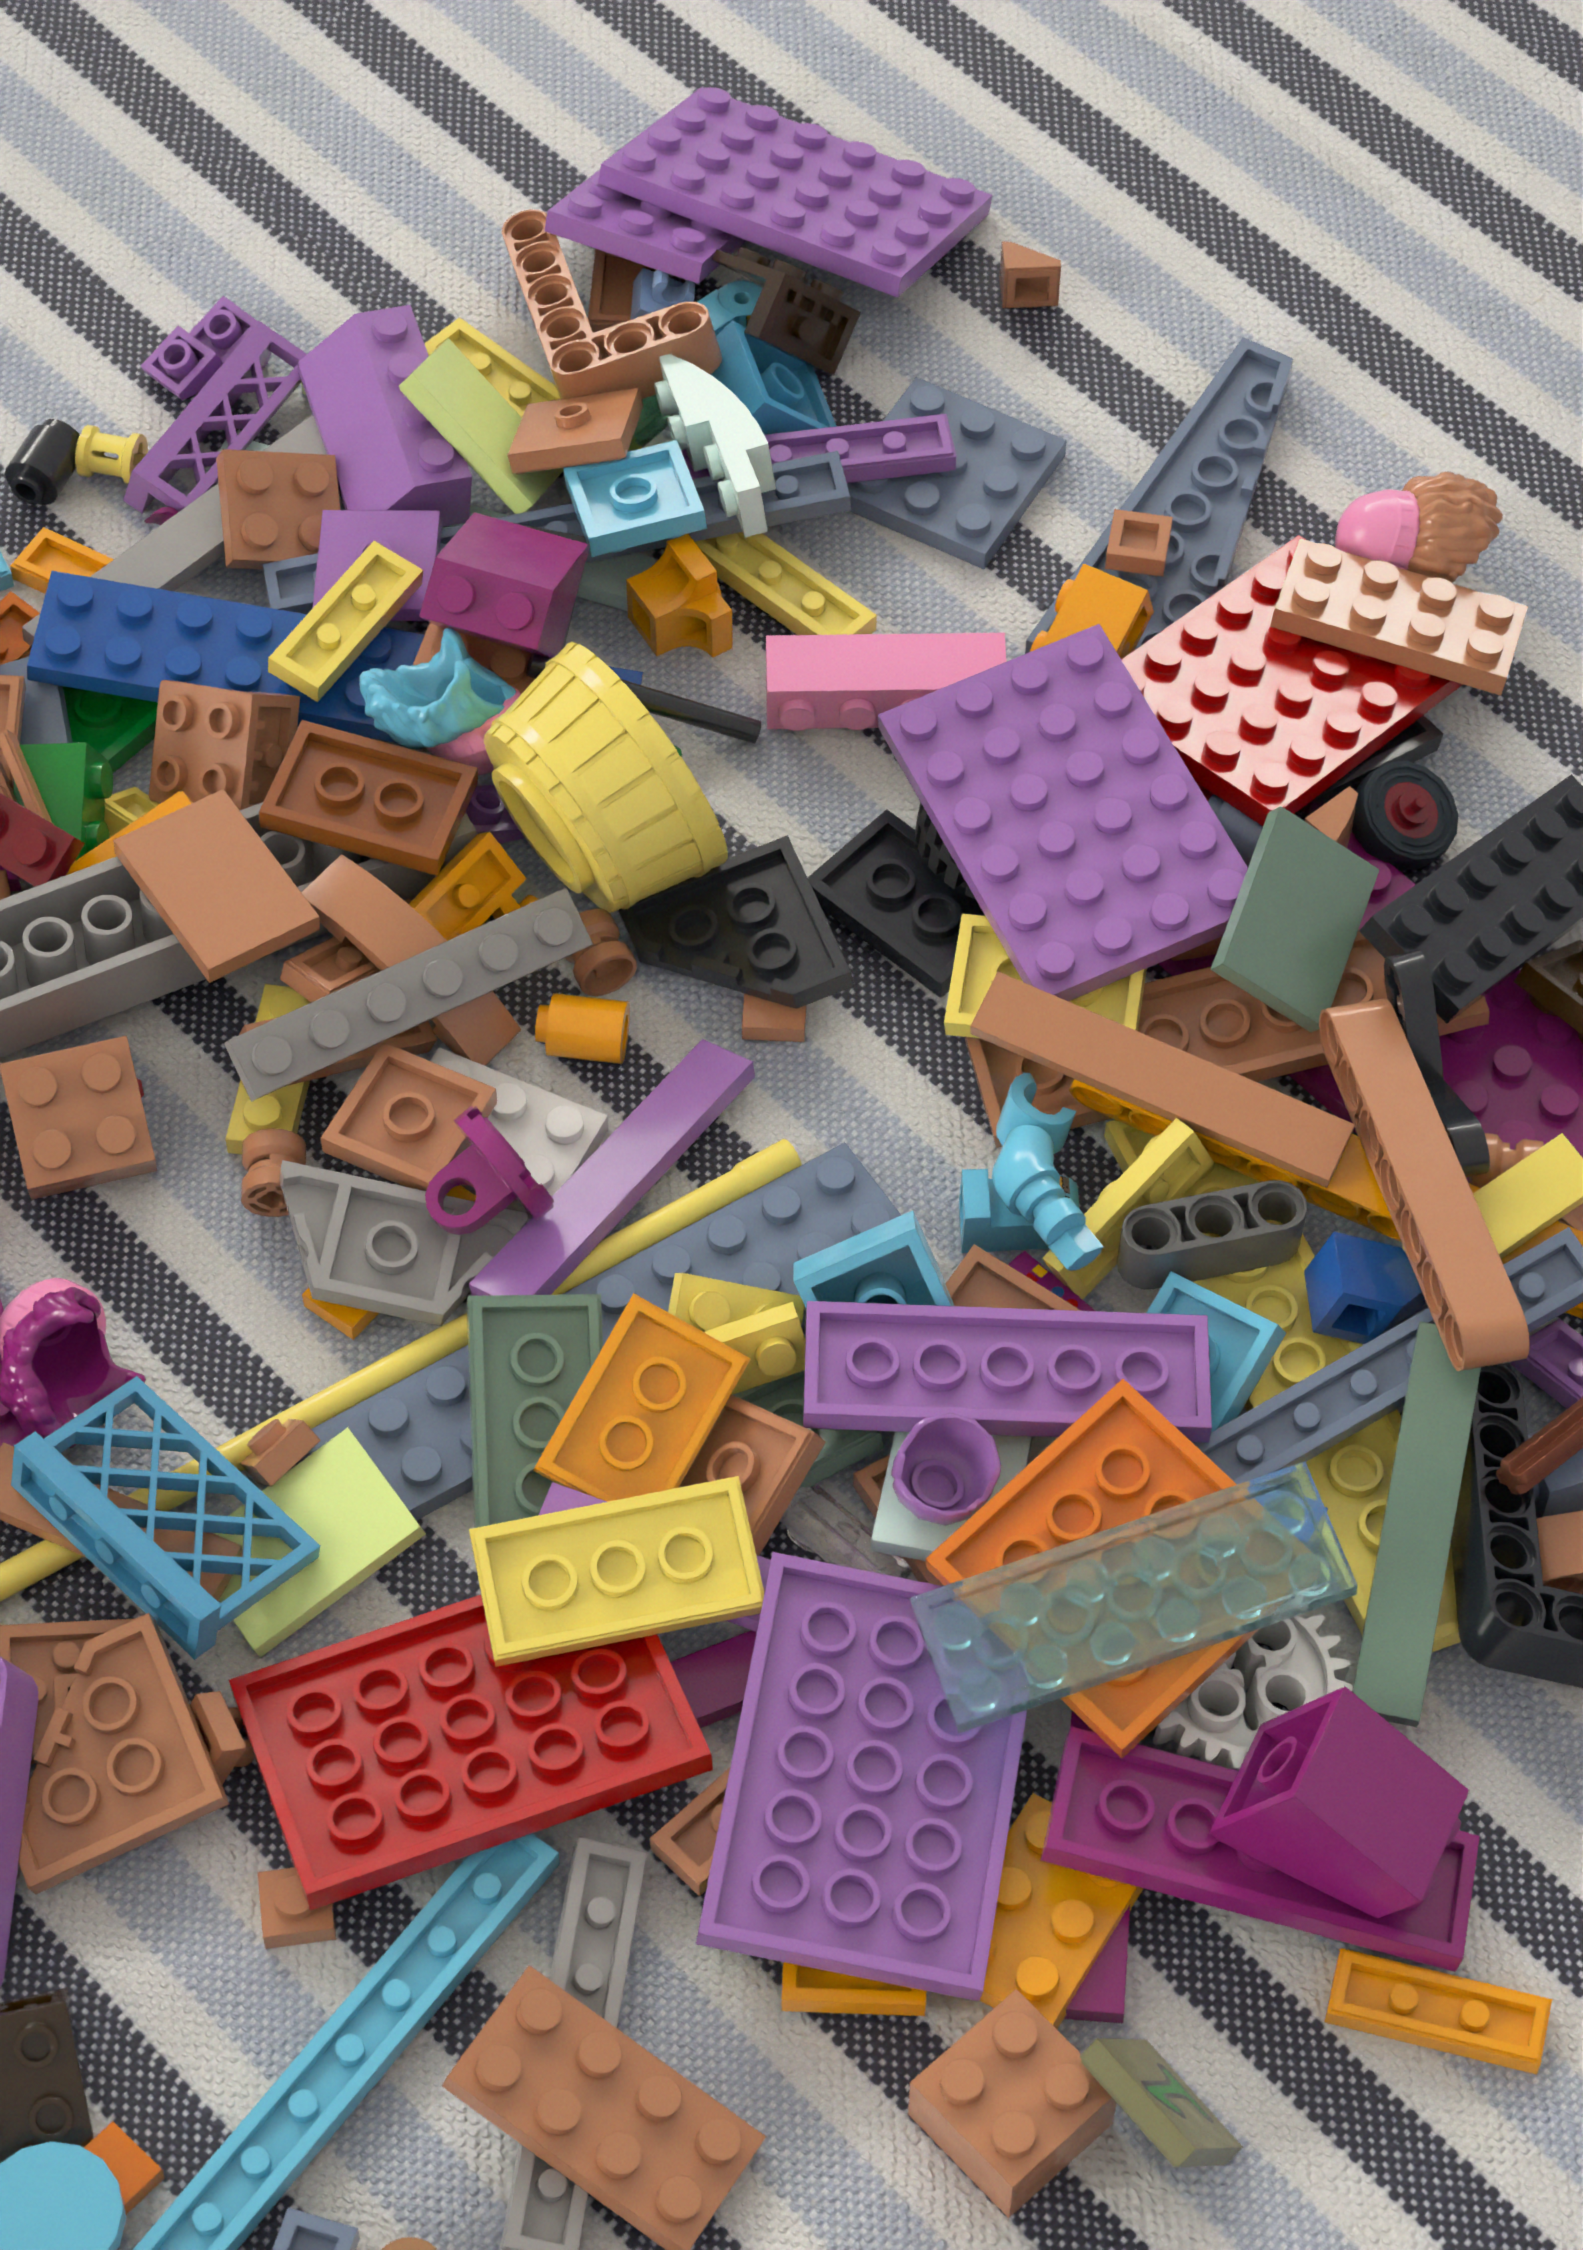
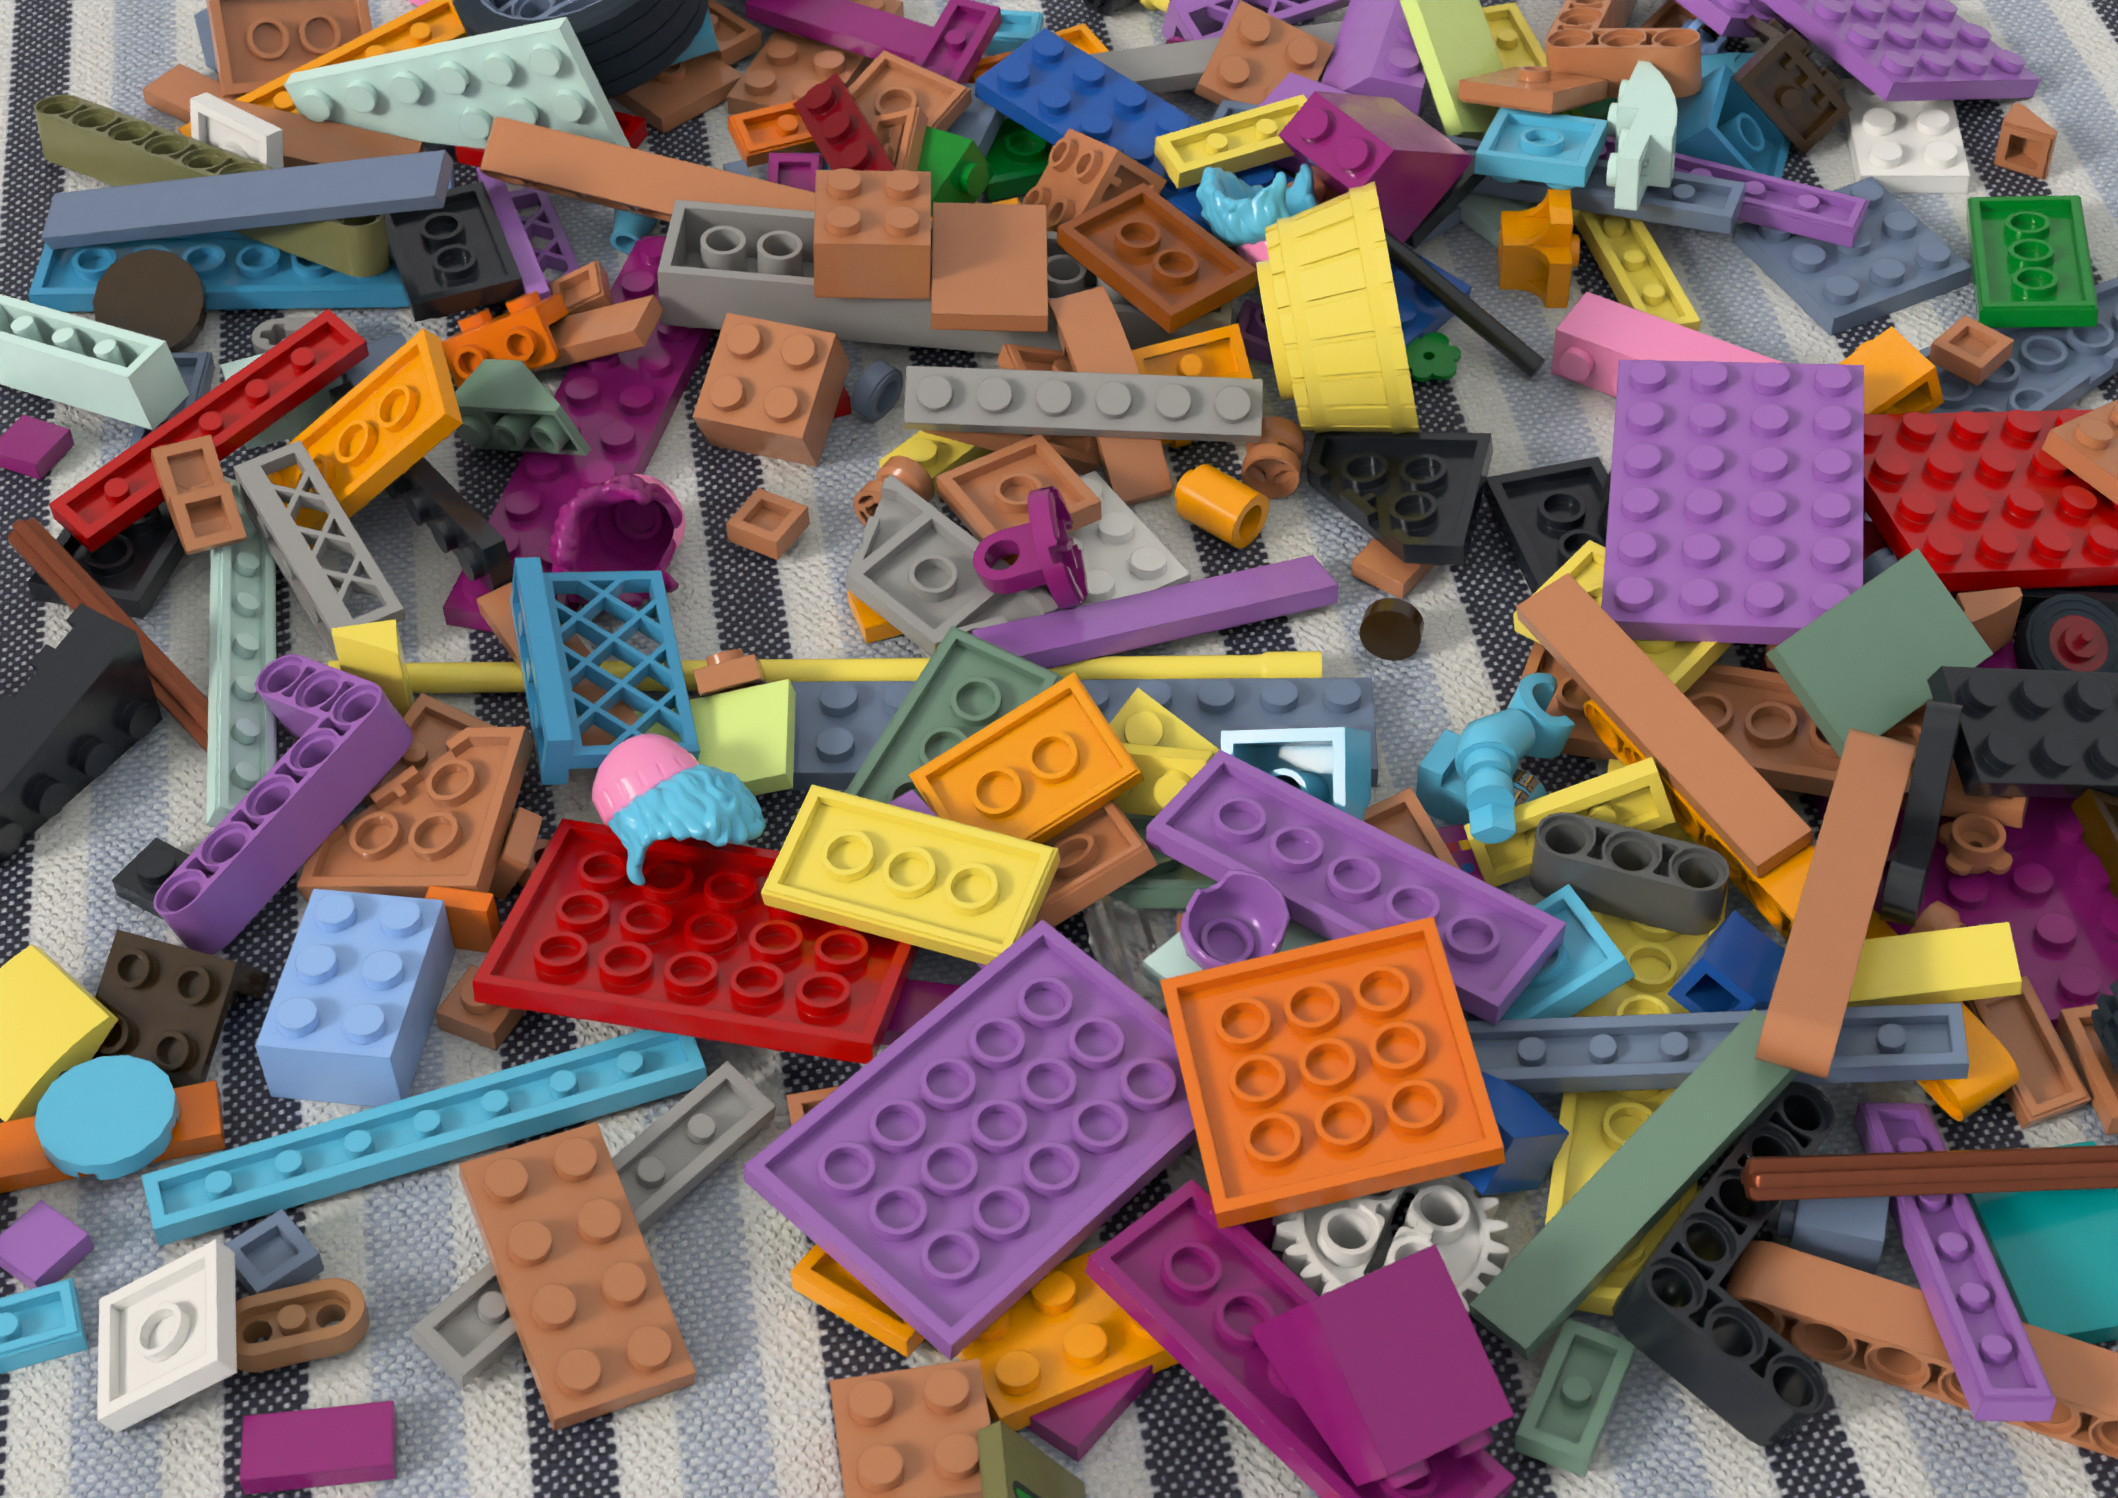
camera: 35 degrees right, 10 degrees down
(91, 909) = (872, 234): none -> nougat brick
(166, 1061) = (877, 390): none -> sand blue tile
(171, 1262) = (767, 523): none -> nougat plate
(186, 1966) = (356, 998): none -> light blue brick
(216, 1831) = (470, 916): none -> orange tile
(347, 1617) = (660, 791): none -> medium azure hair
(829, 1083) = (1391, 629): none -> dark brown tile
(923, 331) = (1905, 142): none -> white plate
(1117, 413) = (2031, 262): none -> green tile
(1132, 1596) = (1310, 1087): clear light blue plate -> none
(1469, 1046) = (1975, 845): none -> nougat plate
(1473, 1734) = (1575, 1397): none -> sand green plate

